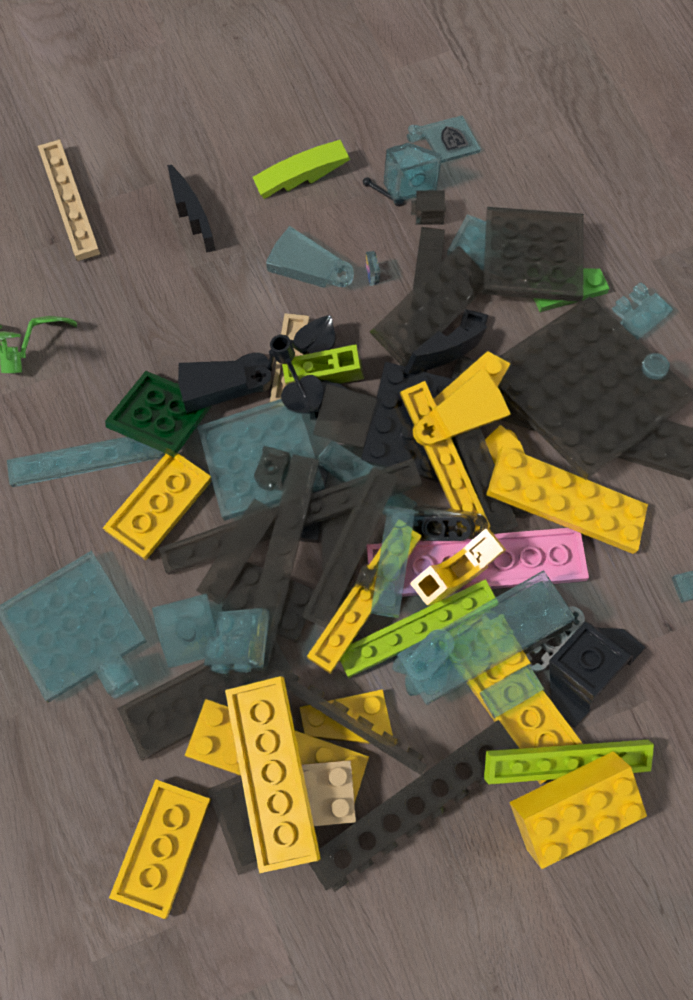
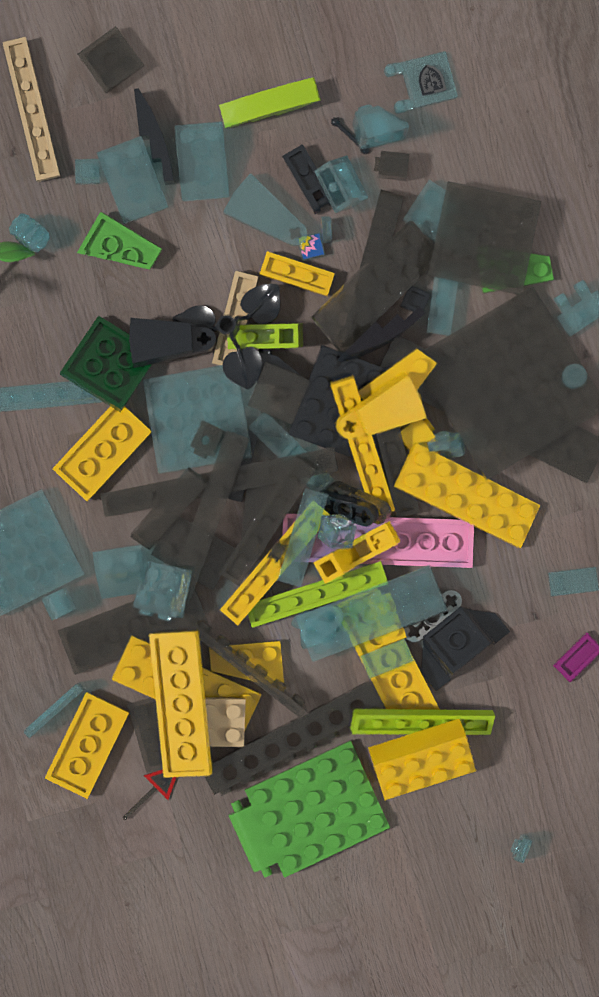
camera: 10 degrees right, 20 degrees up
(68, 299) = (29, 232): none -> clear light blue gear
(116, 808) = (53, 710): none -> clear light blue tile
(127, 247) = (87, 171): none -> clear light blue plate
(144, 151) = (110, 60): none -> clear smoke plate
(161, 303) = (118, 243): none -> bright green wing
(171, 245) = (132, 179): none -> clear light blue slope
(240, 222) = (202, 161): none -> clear light blue slope
(258, 885) = (160, 783): none -> clear smoke piece
(348, 228) = (303, 170): none -> black plate
(348, 310) = (297, 274): none -> yellow plate
(360, 288) = (312, 247): none -> tile
(381, 225) = (341, 184): none -> clear light blue brick
(431, 547) = (337, 531): none -> clear light blue brick
(446, 903) = (308, 812): none -> bright green plate
(501, 323) = (442, 307): none -> clear light blue plate
(537, 446) = (448, 443): none -> clear light blue bracket

